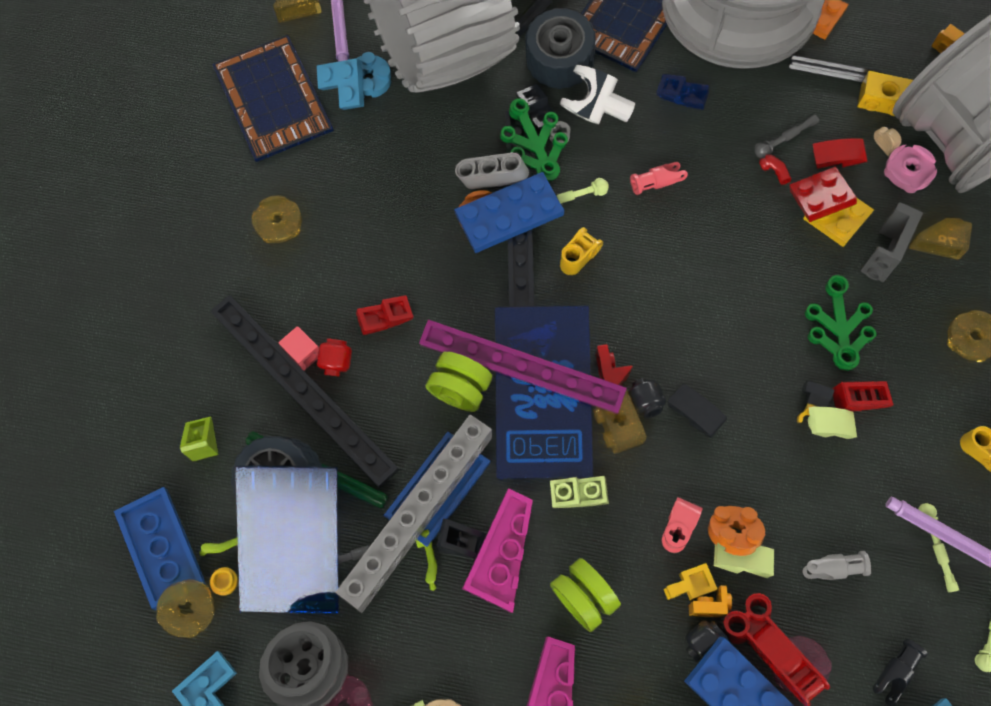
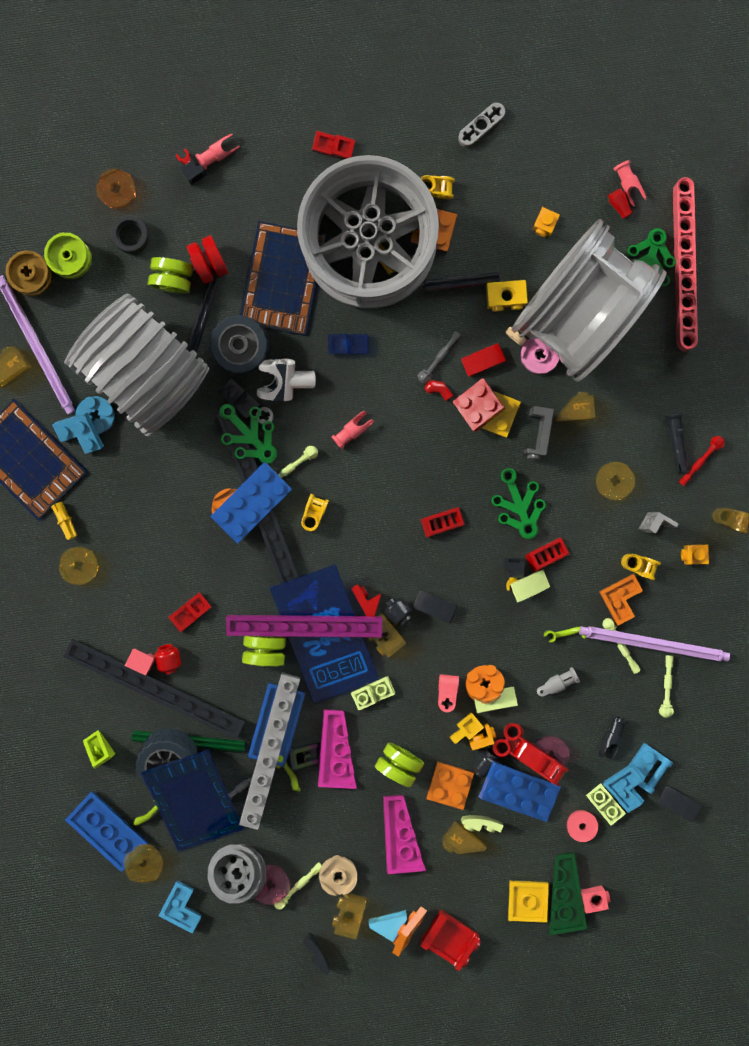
camera: 25 degrees left, 20 degrees up
(223, 581) = (159, 836): yellow plate -> none
(284, 166) = (64, 520): none -> yellow axle
(501, 167) = (234, 473): light grey beam -> none
(644, 657) = (450, 785): none -> orange plate
(720, 316) = (427, 527): none -> red slope
(862, 503) = (563, 633): none -> lime piece
(946, 480) = (616, 596): none -> orange plate

